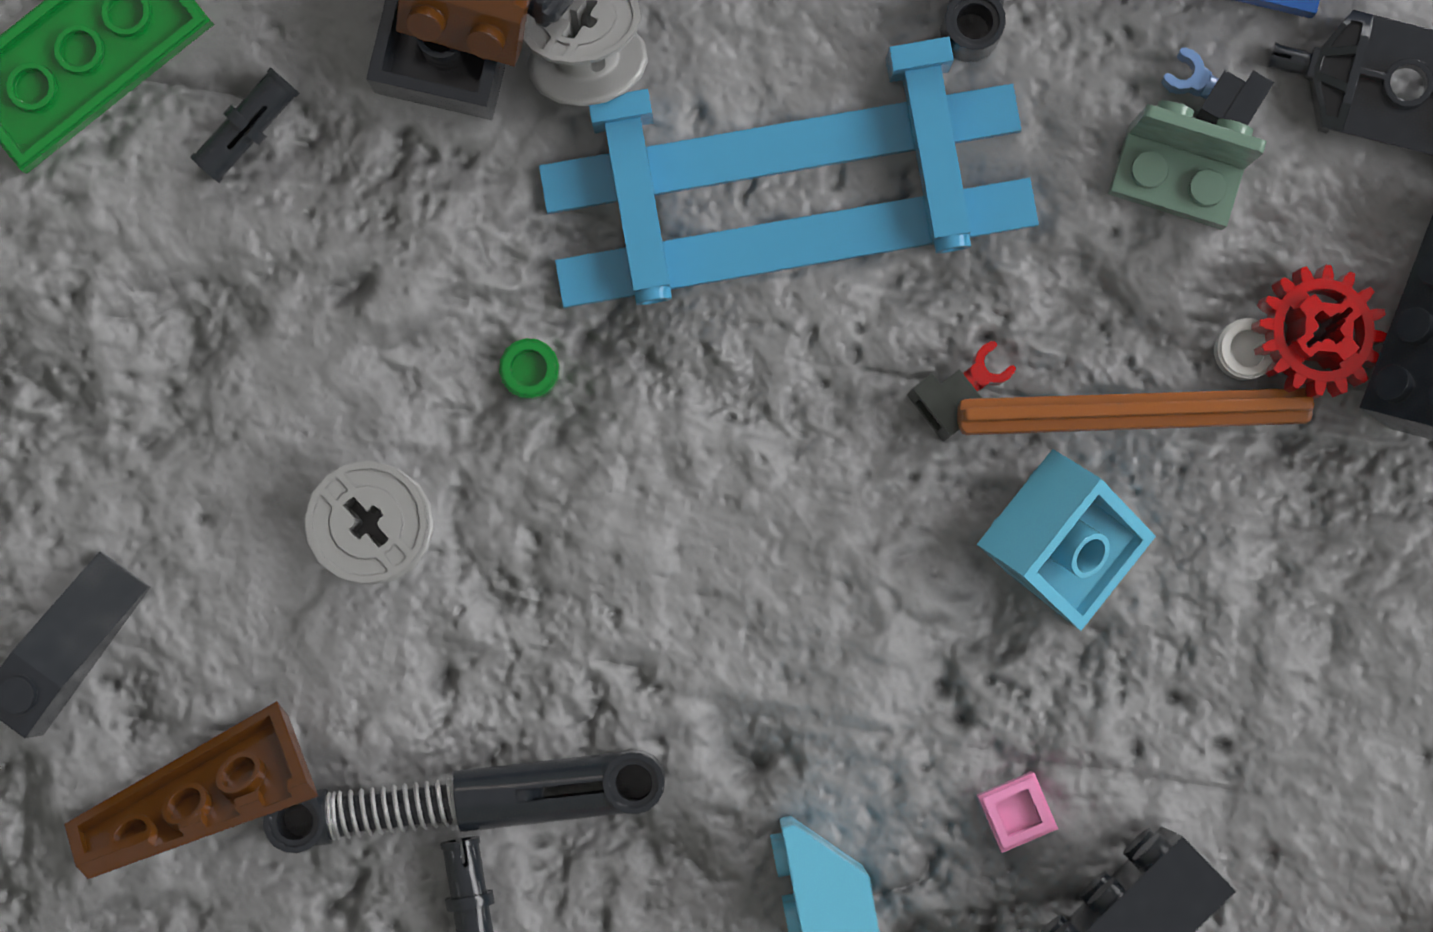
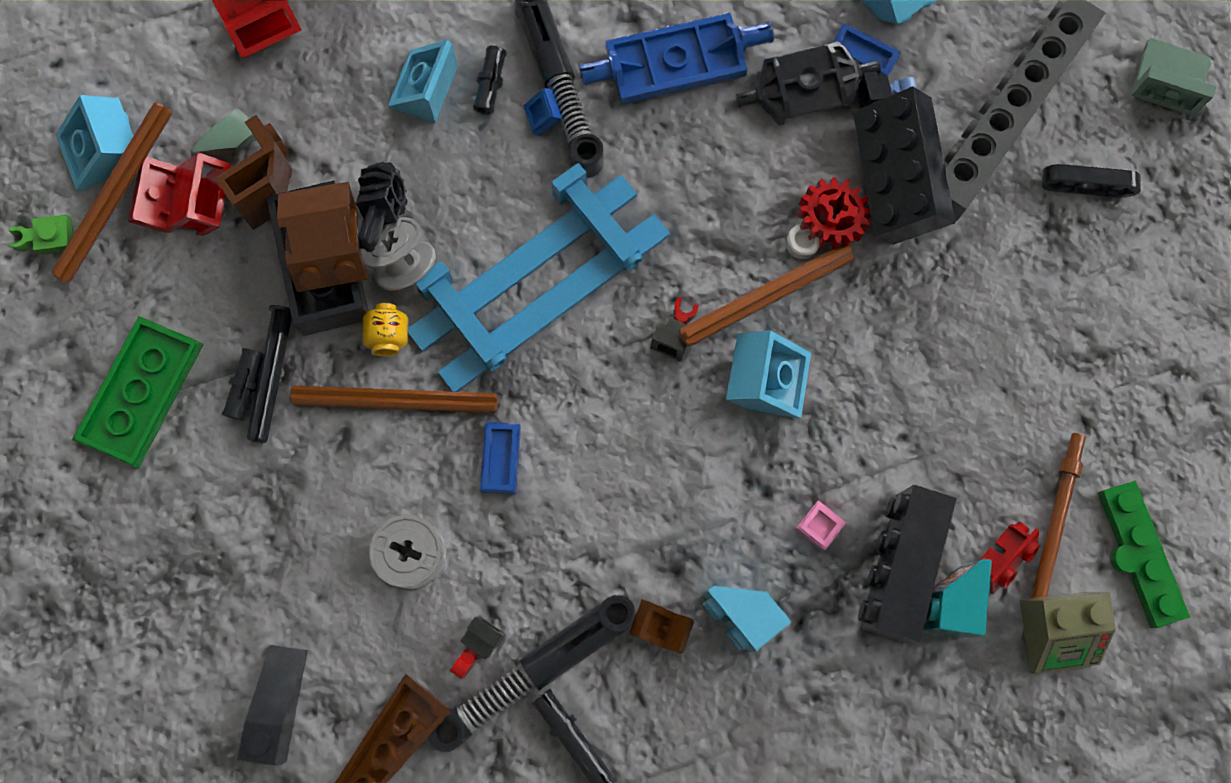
camera: 30 degrees left, 10 degrees down
(293, 129) = (269, 374): none -> black axle
(411, 712) = (480, 640): none -> pearl dark grey piece
(466, 270) = (394, 399): none -> dark orange axle
(505, 154) = (385, 330): none -> yellow head
(529, 369) = (452, 432): green tile -> none
(582, 448) = (500, 458): none -> blue tile
(690, 837) = (661, 627): none -> reddish brown bracket
(1184, 163) = (724, 165): sand green bracket -> none
(1225, 97) = (729, 129): black piece -> none

